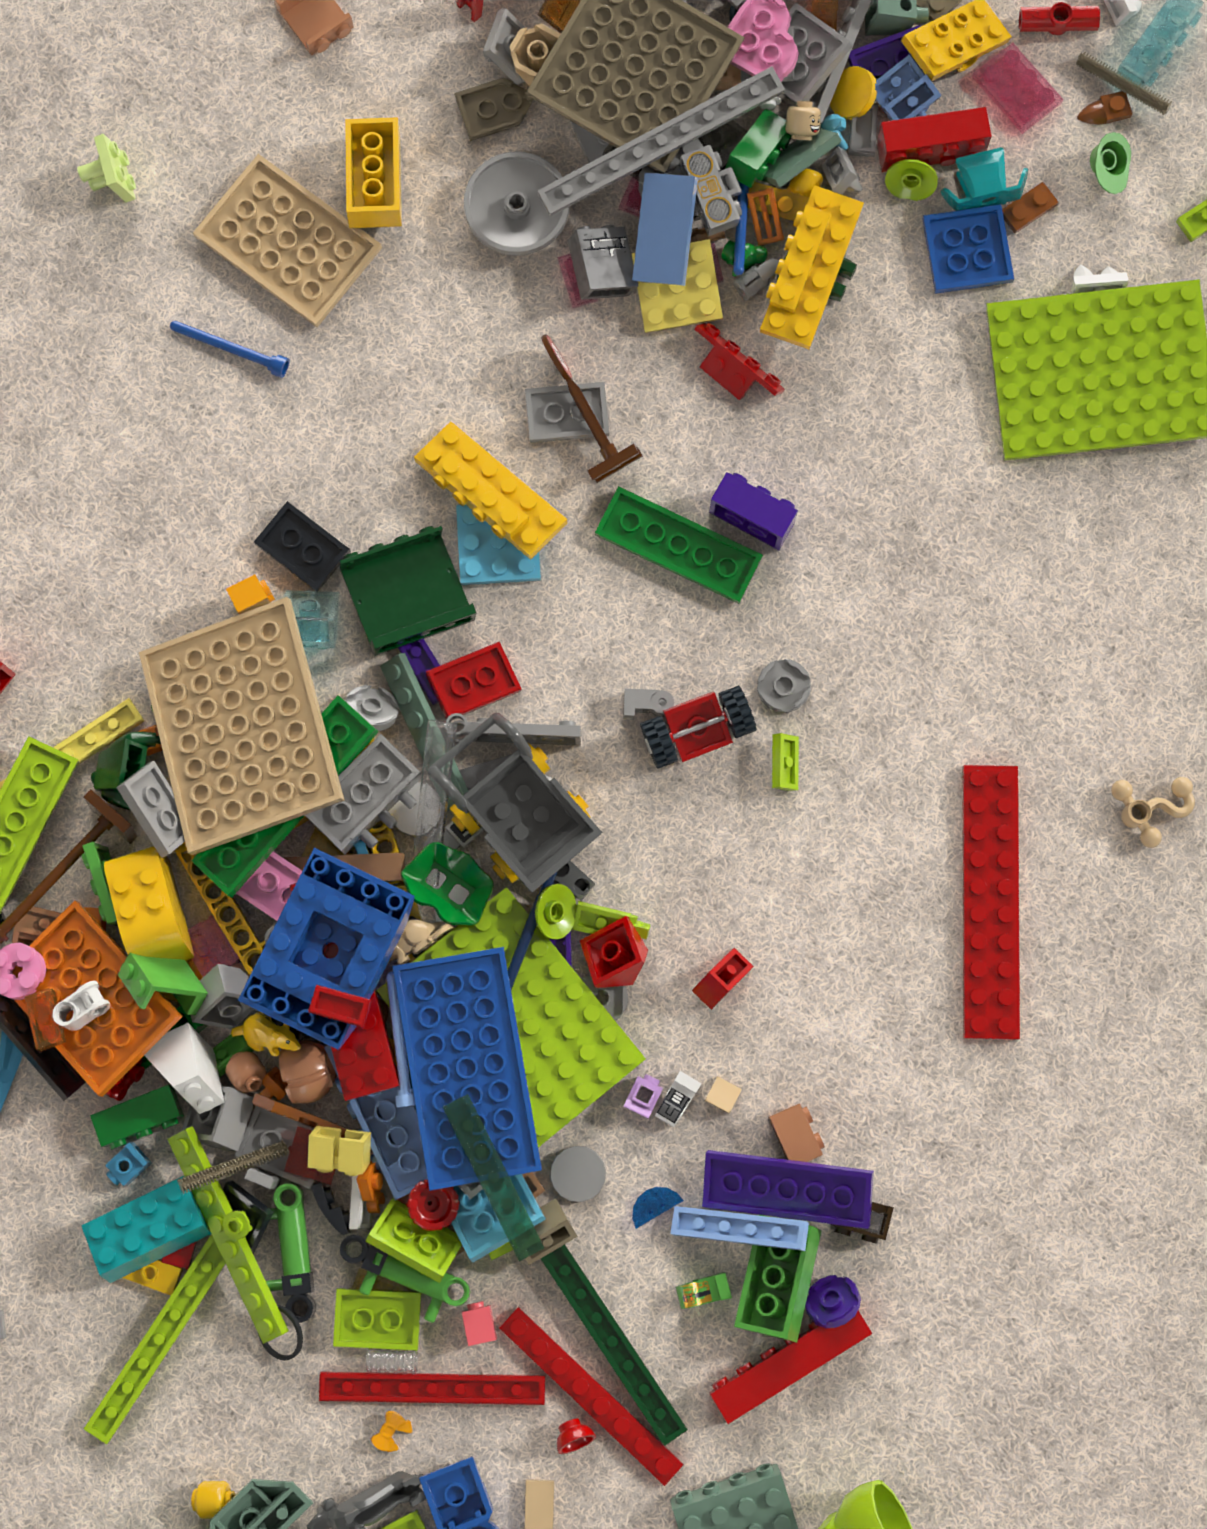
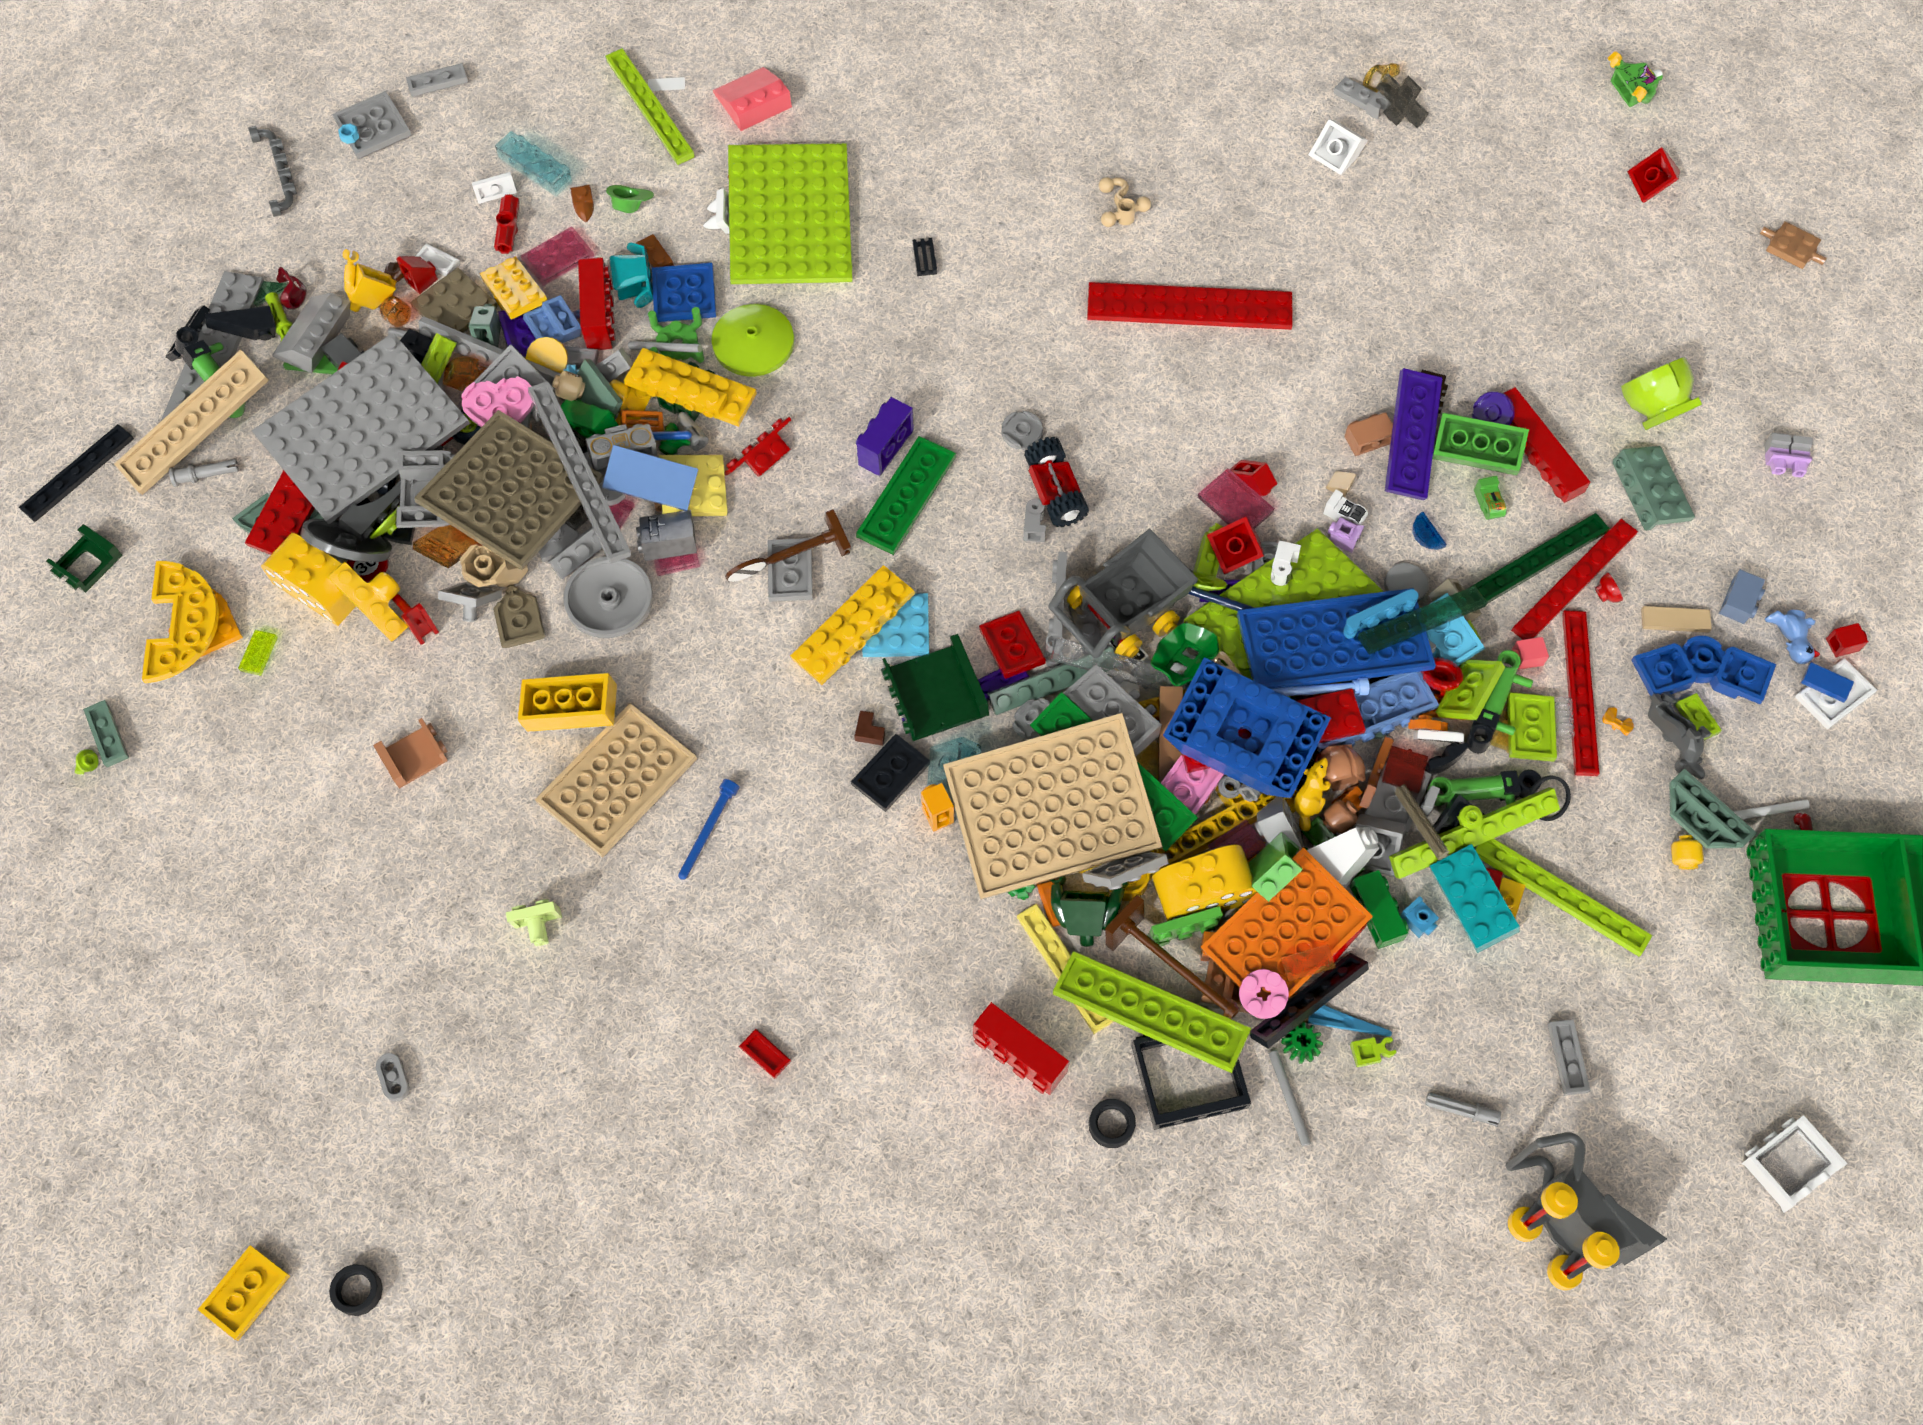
camera: 90 degrees left, 15 degrees down
(86, 1004) = (1297, 927): white piece -> none
(331, 1152) = (1407, 732): light yellow piece -> none
(340, 1006) = (1297, 710): red tile -> none
(357, 514) = (865, 730): none -> copper piece
(489, 1111) = (1387, 609): none -> dark azure plate
(574, 156) = (575, 553): none -> light grey plate
(581, 1007) = (1281, 567): none -> white leg
(685, 957) = (1234, 500): none -> clear pink plate
(740, 1228) = (1445, 465): light blue plate -> none
(785, 761) = (1091, 430): lime plate -> none
(876, 232) = (661, 346): none -> light grey bar
(896, 363) = (752, 340): none -> lime dish
(899, 234) = (678, 330): none -> bright green plate
(911, 180) = (625, 321): lime dish -> none
(1070, 546) = (922, 243): none -> black tile
(1123, 84) = (564, 186): dark tan axle -> none

